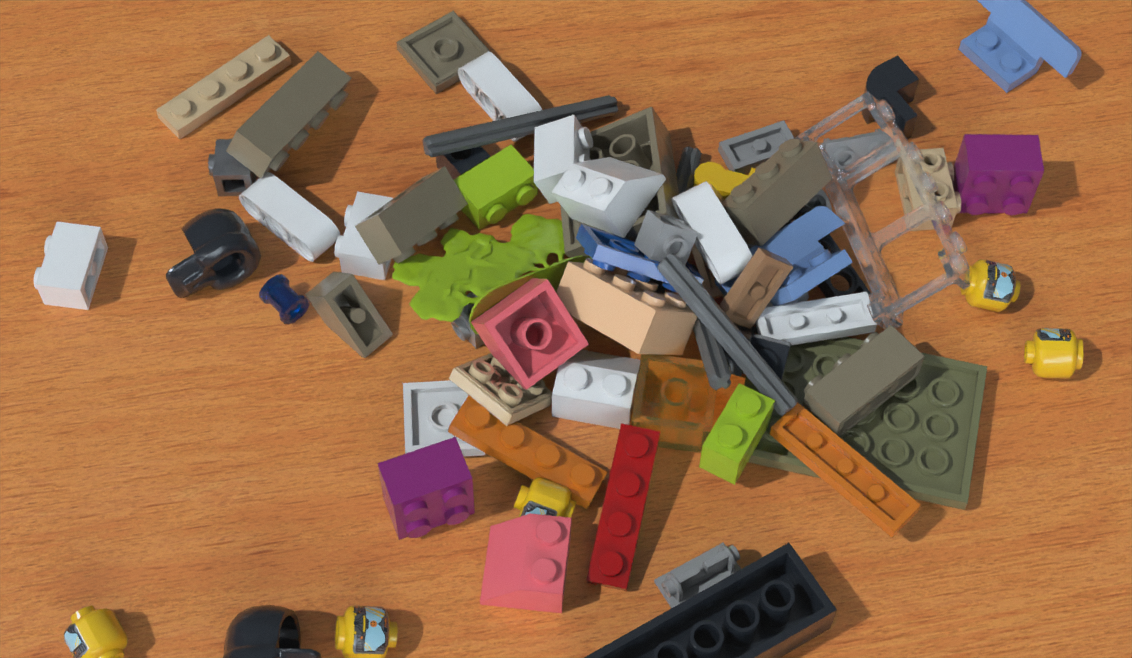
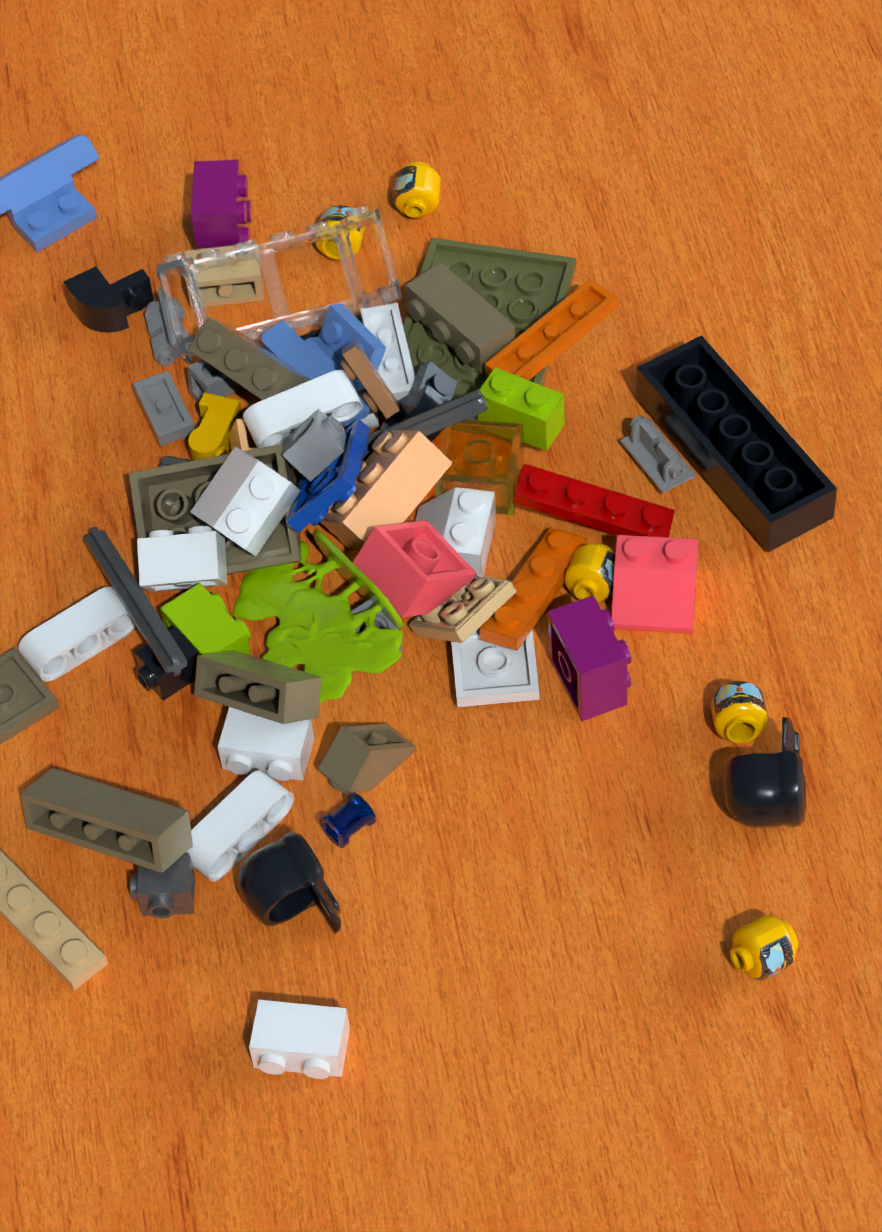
camera: 85 degrees left, 5 degrees down
(727, 333) = (421, 399): dark grey axle -> none

